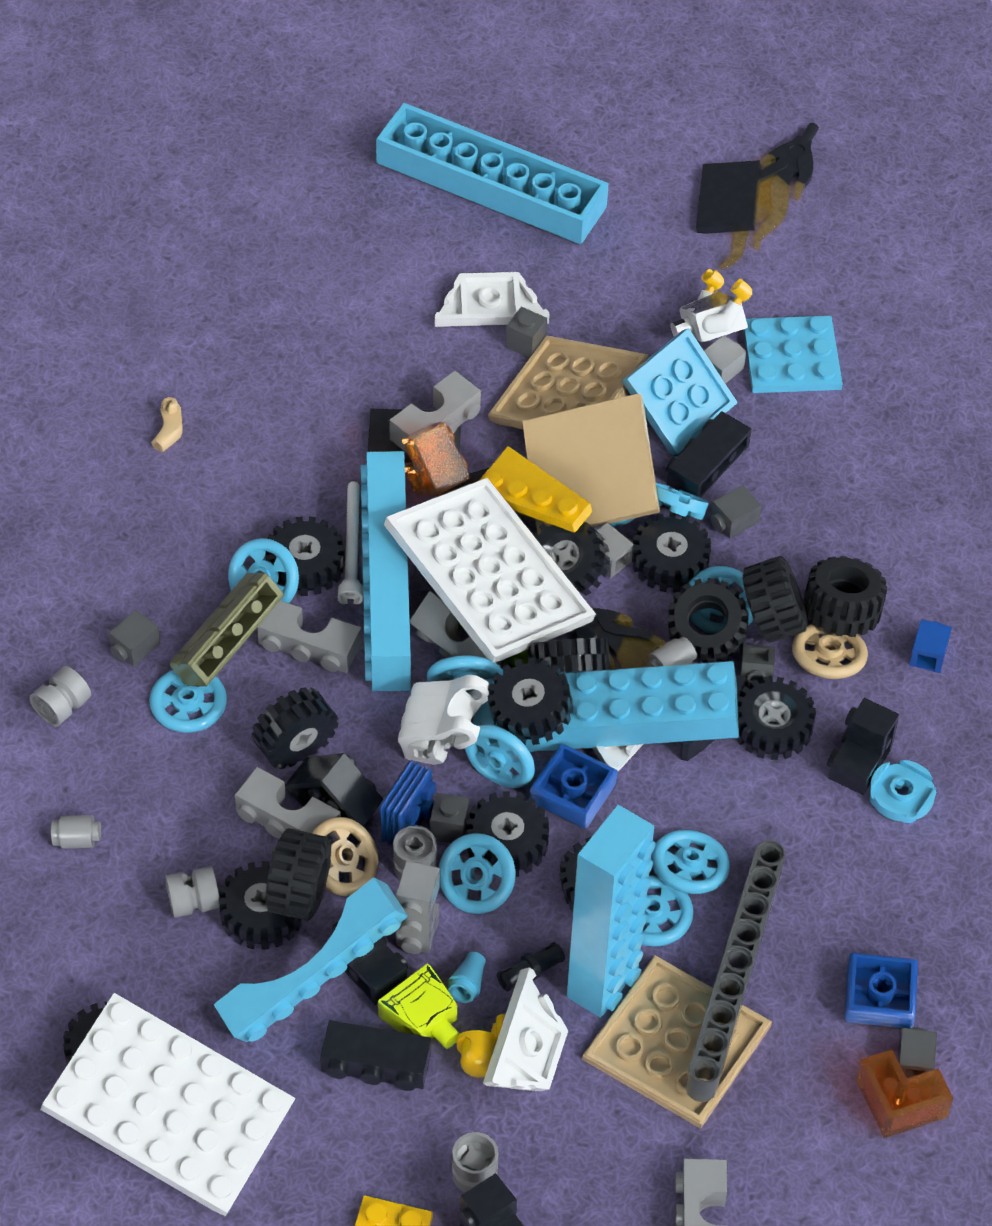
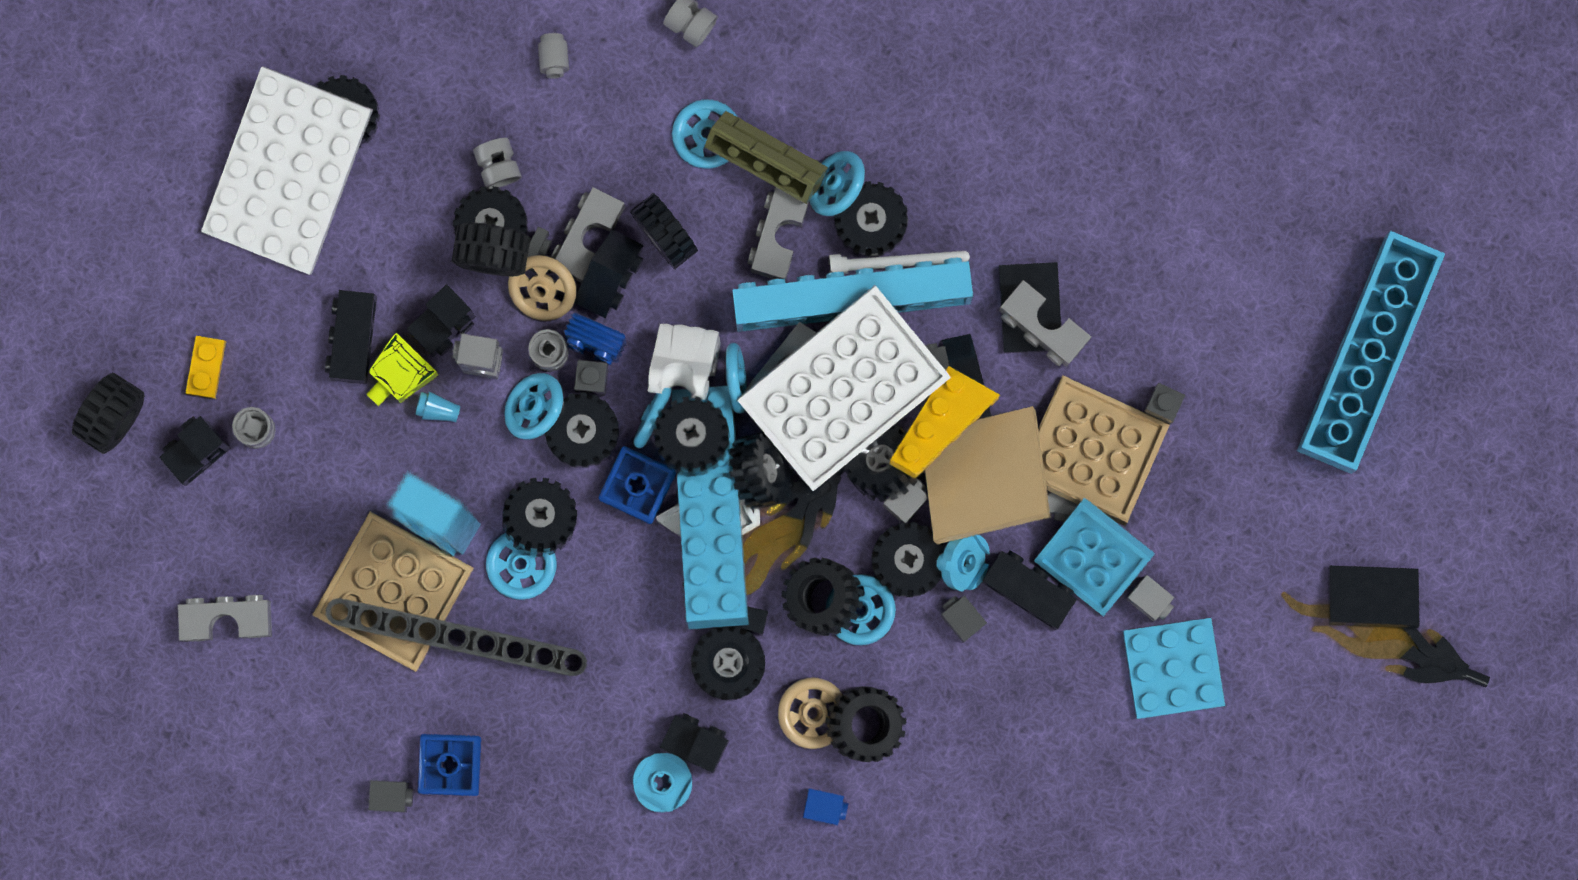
camera: 85 degrees right, 30 degrees up
(133, 638) = (761, 75): dark grey brick -> none
(172, 425) = (1018, 77): tan arm -> none
(365, 919) = (437, 308): medium azure arch -> none
(434, 459) = (973, 328): clear orange brick -> none
(477, 1048) = (361, 425): yellow piece -> none
(487, 300) = (1207, 366): white wing -> none
(527, 1041) = (368, 462): white wing -> none
(538, 962) = (452, 461): black pin -> none
(673, 653) = (767, 563): light grey brick -> none
(690, 861) = (594, 585): medium azure plate -> none
(713, 312) = (1202, 582): white torso -> none
(757, 663) = (787, 646): dark grey bracket -> none
(774, 599) = (845, 656): black tyre -> none
(900, 1101) = (337, 781): clear orange brick -> none

